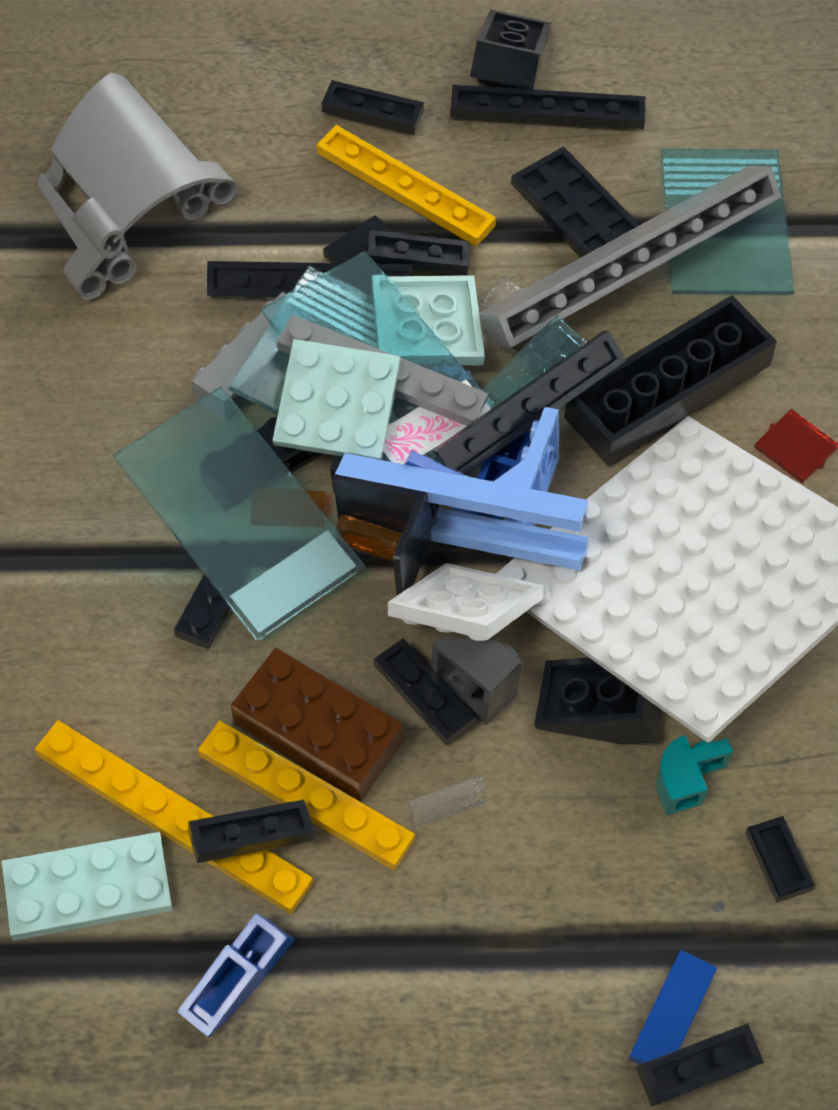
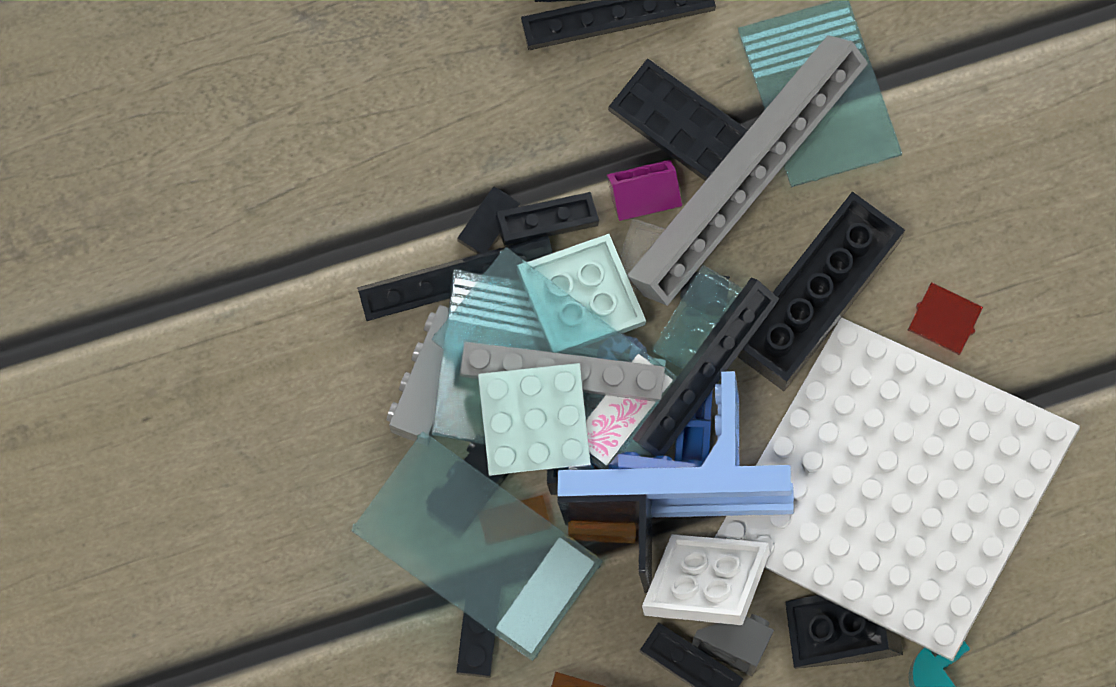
camera: 15 degrees left, 15 degrees up
(125, 167) = (248, 212): light grey panel -> none
(372, 107) = (451, 62): black plate -> none
(406, 185) = (511, 143): yellow plate -> none
(523, 255) = (644, 190): none -> magenta brick

